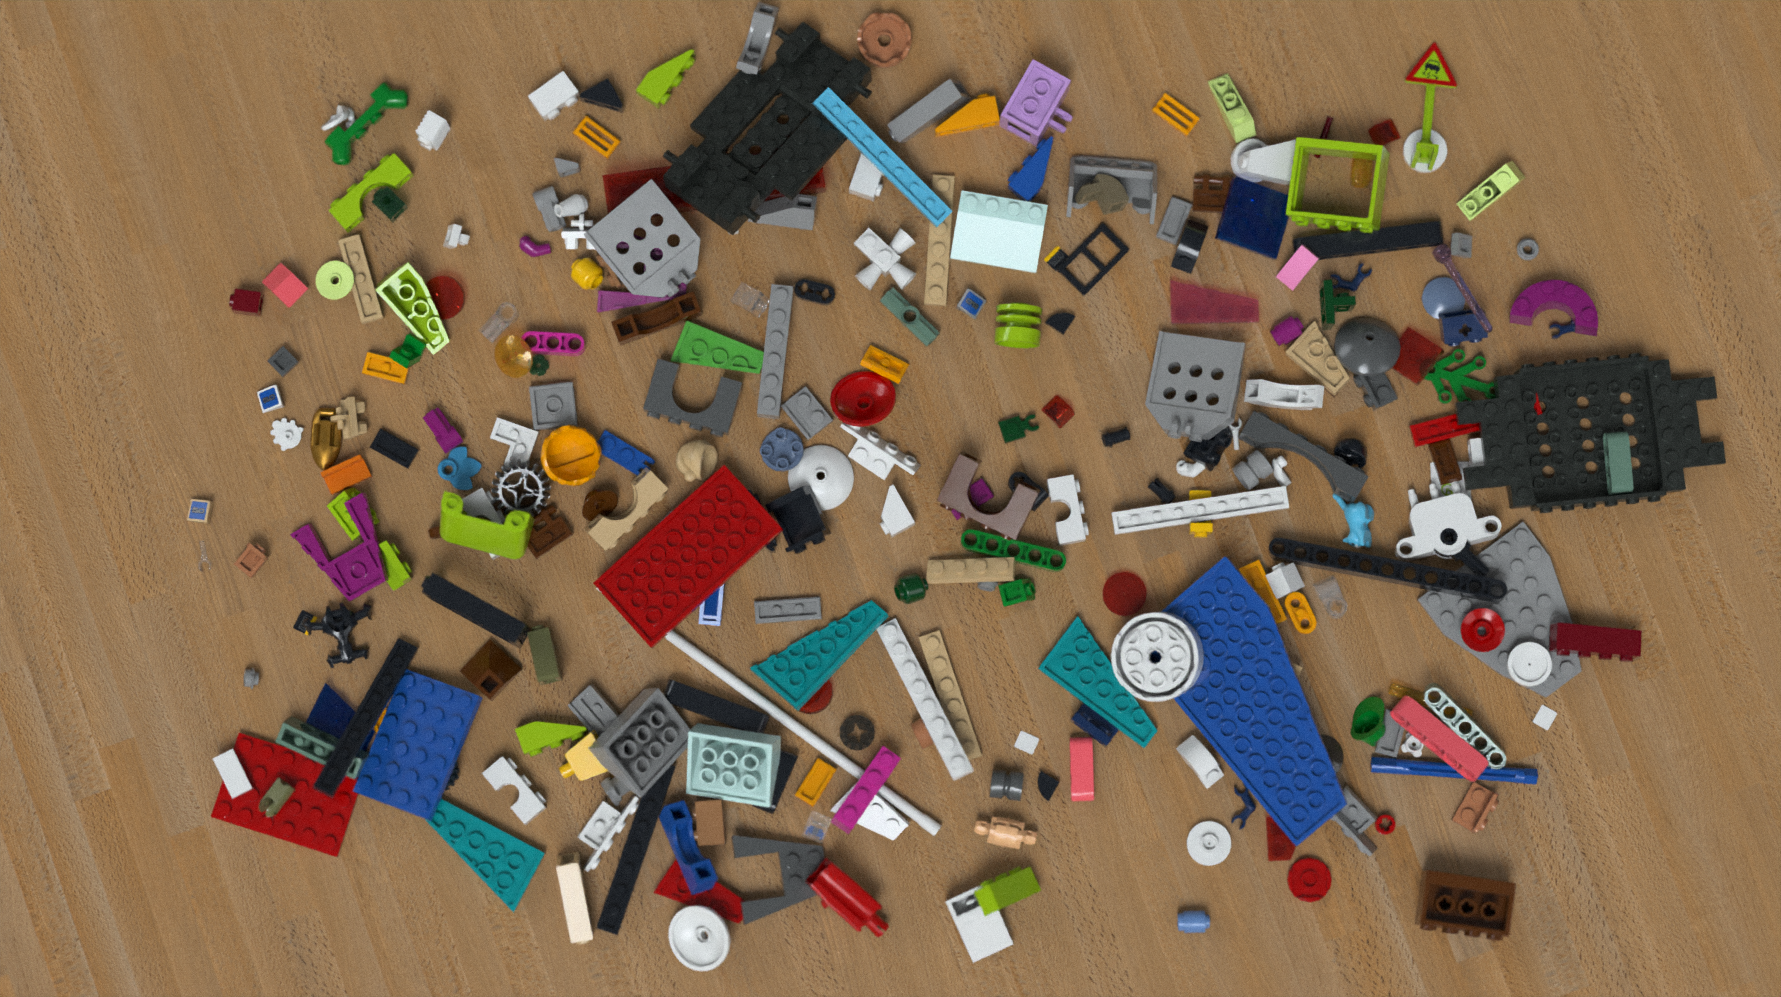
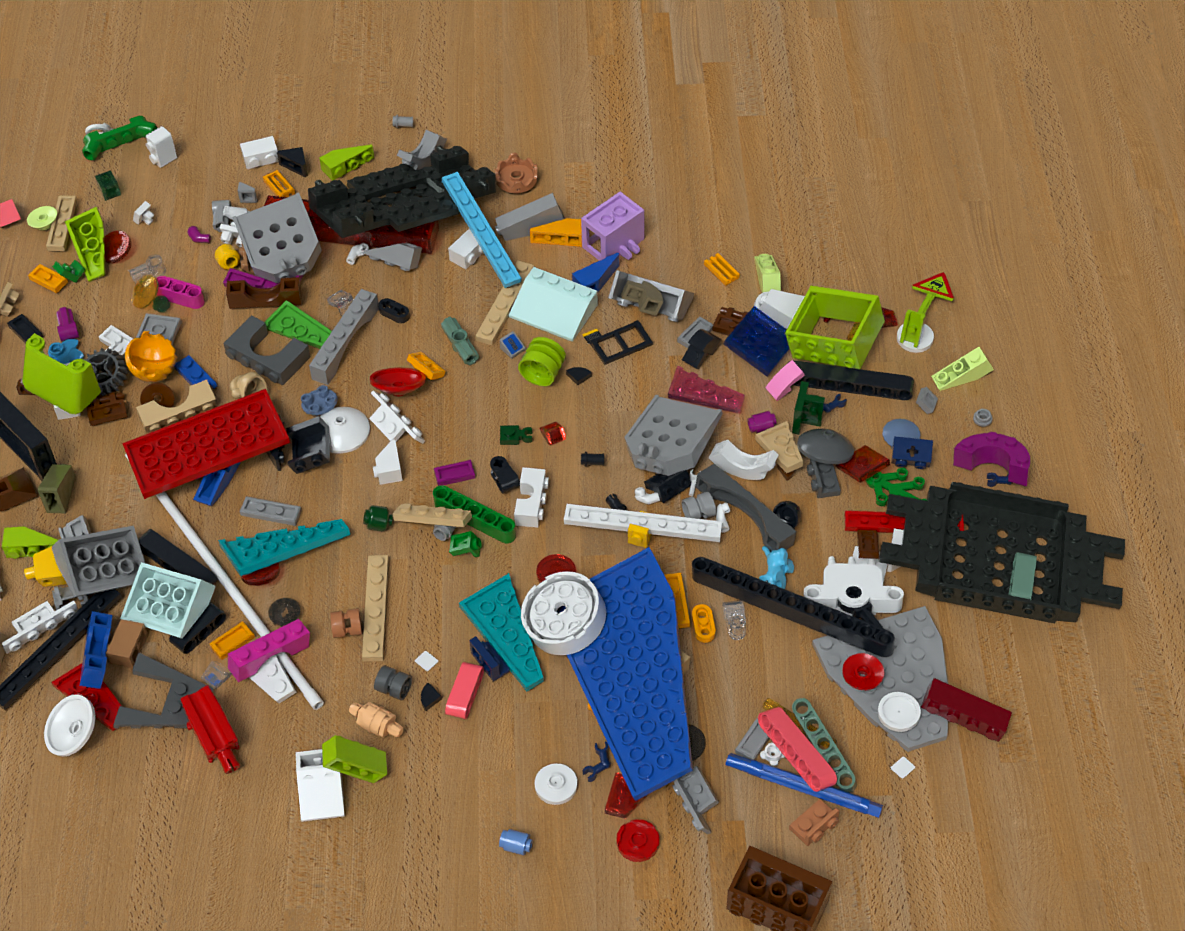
camera: 20 degrees right, 30 degrees down
(390, 173) = (81, 179): lime arch -> none
(806, 413) = (350, 384): light grey plate -> none
(884, 258) = (456, 298): white brick -> none
(924, 699) = (350, 596): white plate -> none
(957, 496) = (478, 485): arch -> none
(1200, 761) = (573, 711): white brick -> none
(1284, 580) = (697, 591): white brick -> none
(1368, 721) = (737, 723): green piece -> none
(1390, 829) = (724, 819): red bush -> none
(1443, 255) = (909, 403): piece -> none

